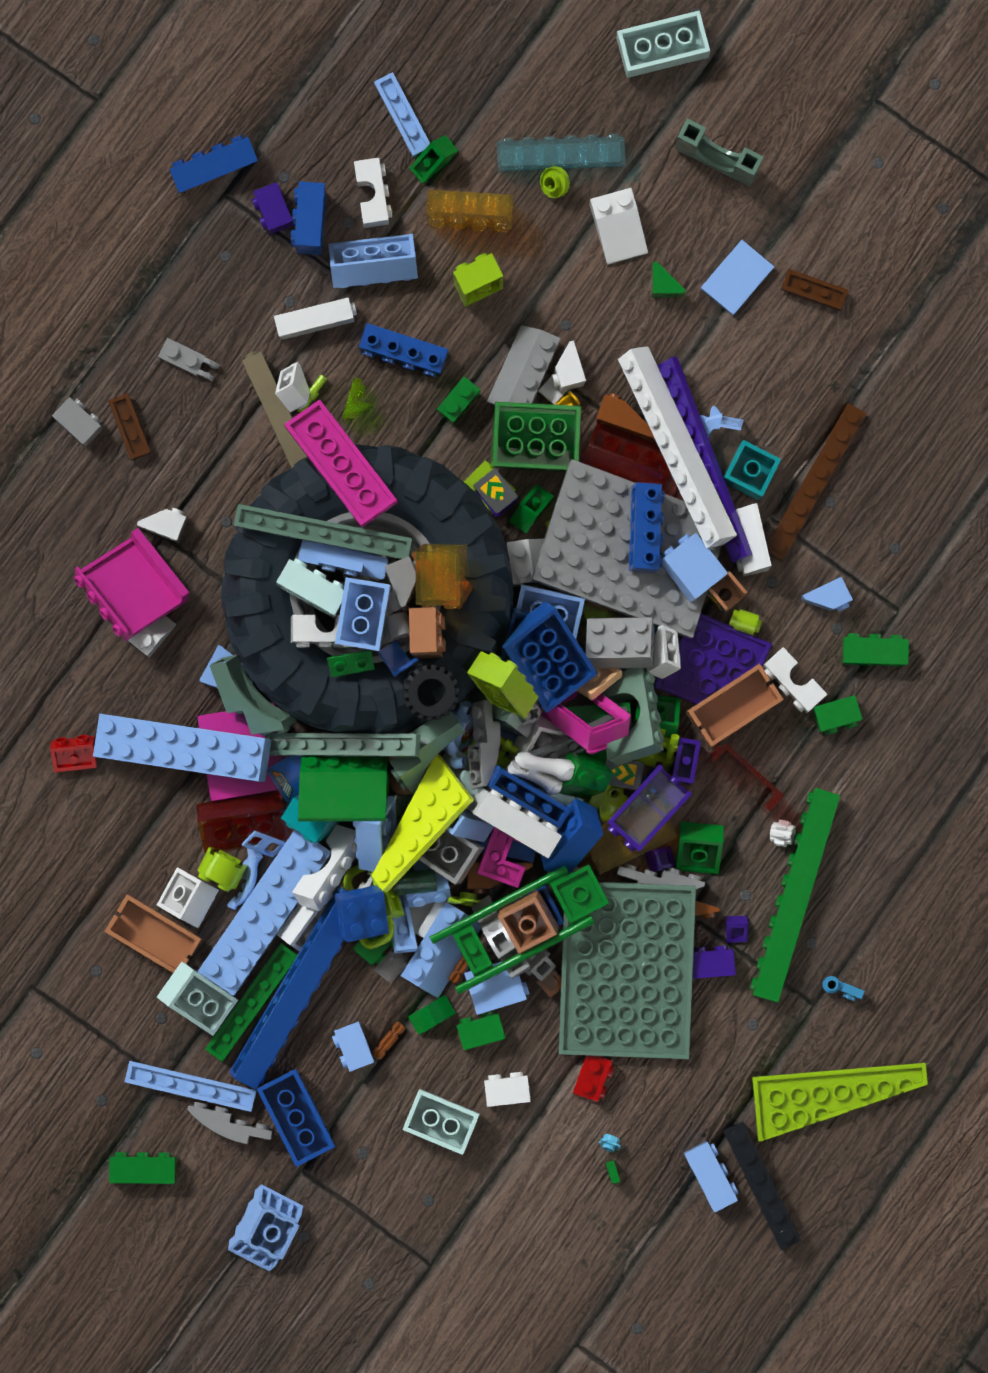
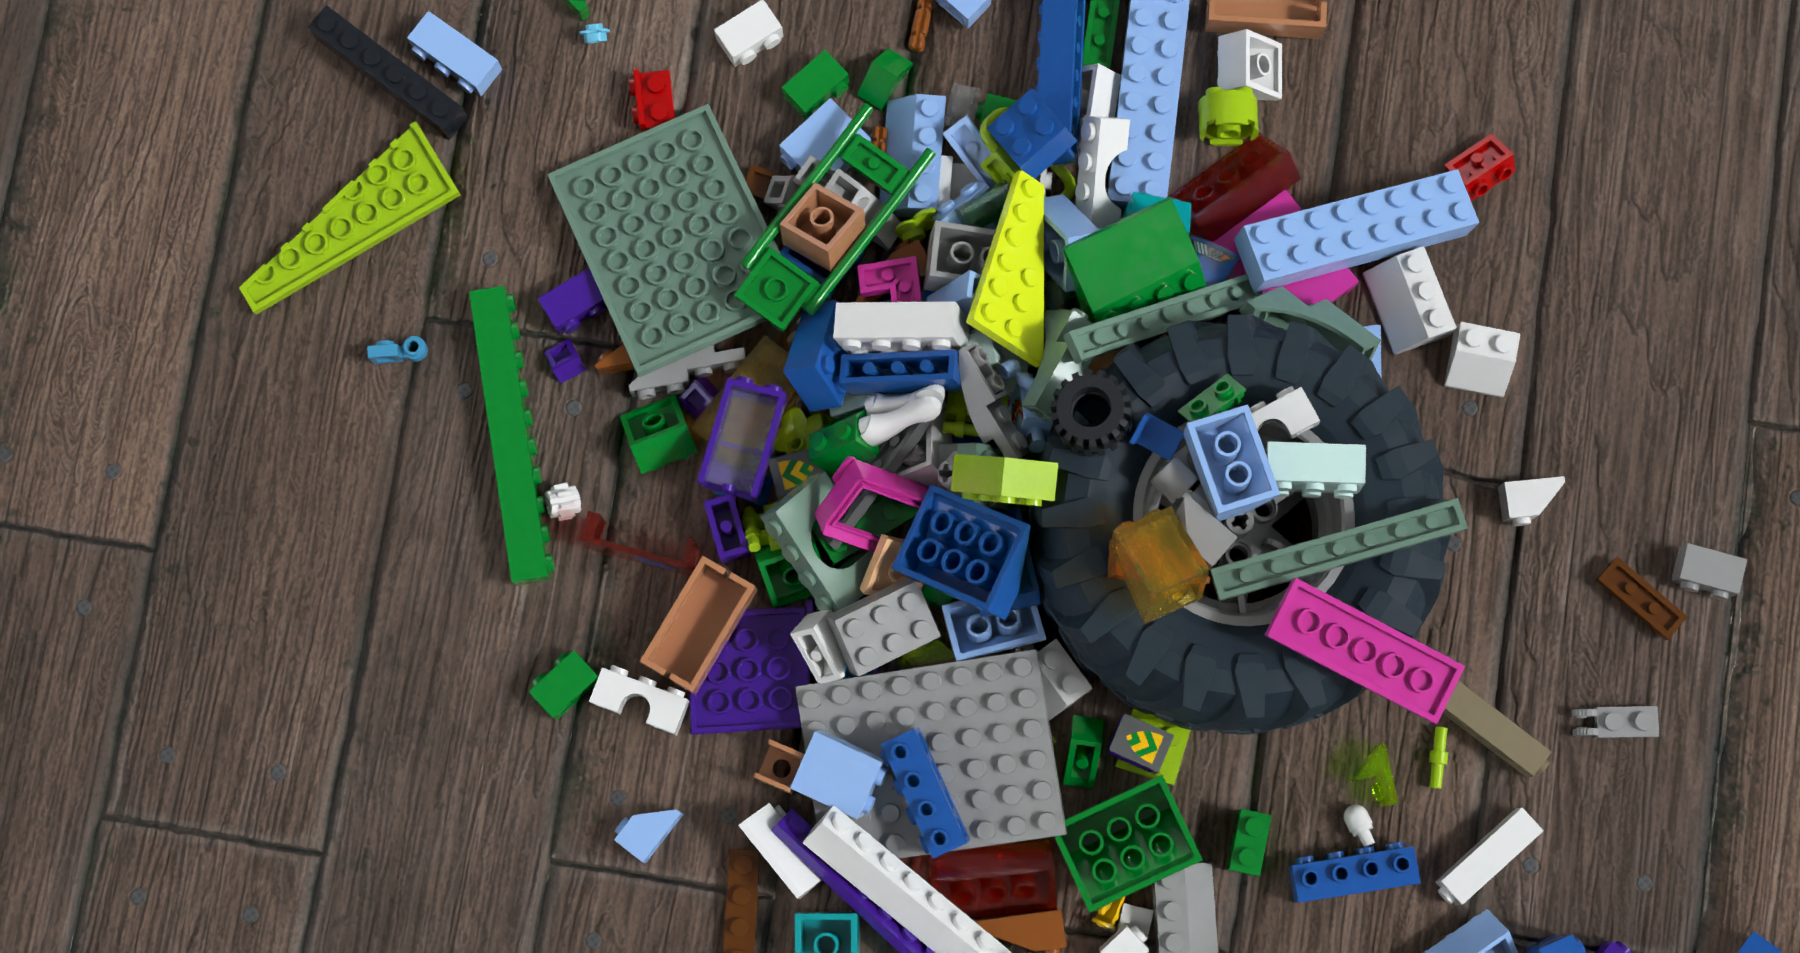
camera: 155 degrees right, 5 degrees down
(132, 586) = (1528, 395): dark pink panel -> none
(170, 688) = (1409, 301): none -> white slope
(252, 861) = (1196, 146): light blue piece -> none
(292, 388) = (1467, 750): white slope -> none
(343, 559) = (1291, 528): light blue bracket -> none
(383, 378) = (1359, 823): none -> white cylinder
(426, 633) = (1137, 482): nougat brick -> none
(745, 622) = (738, 744): lime brick -> none
(875, 650) = (554, 791): green brick -> none

